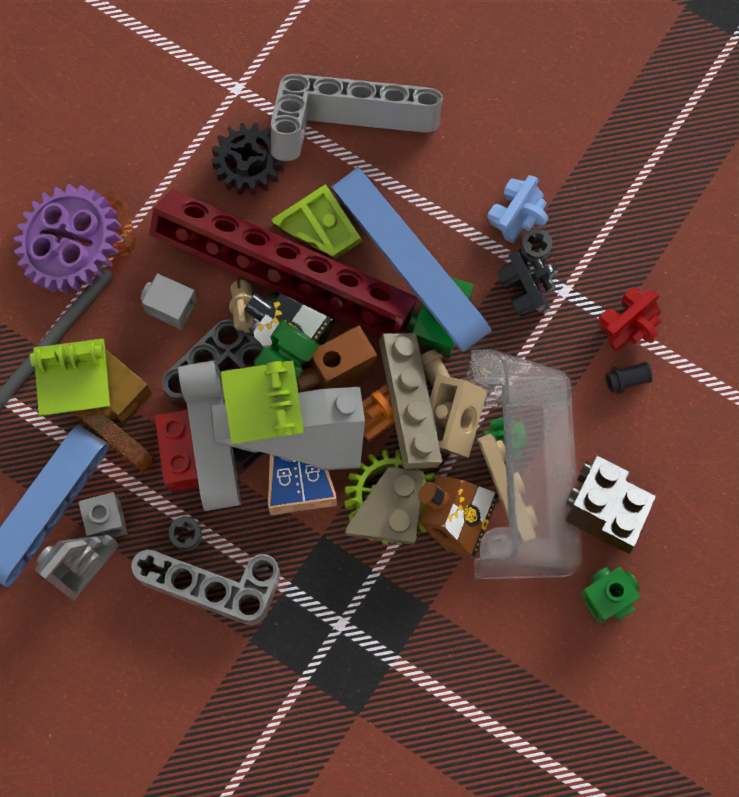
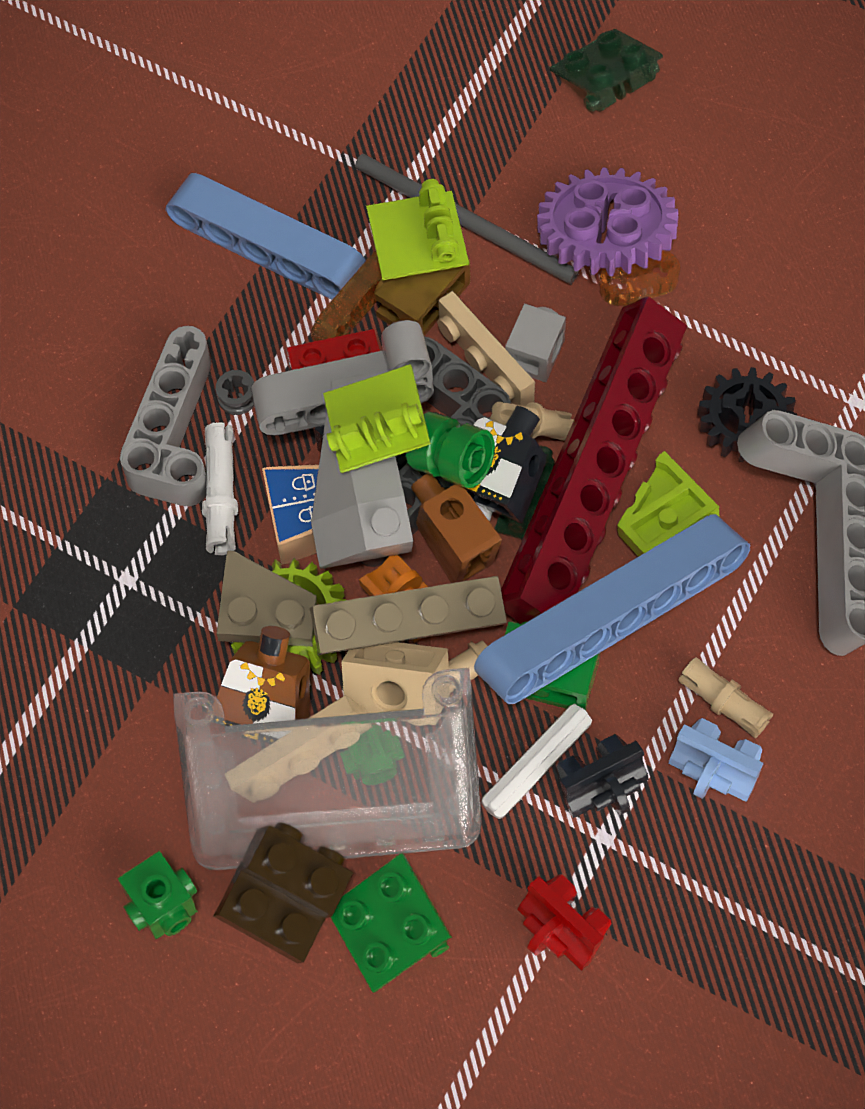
camera: 90 degrees right, 10 degrees down
(75, 562) = (179, 256): light grey wedge -> none
(103, 516) = (249, 297): light grey brick -> none
(173, 339) = (484, 350): none -> tan plate
(280, 547) = (220, 500): none -> white pin
(469, 199) = (725, 697): none -> tan pin
(510, 328) = (536, 761): none -> white axle
(538, 234) = (674, 803): dark grey bush -> none
(627, 377) = (476, 921): black pin -> none
(630, 433) = (389, 923): none -> green hinge

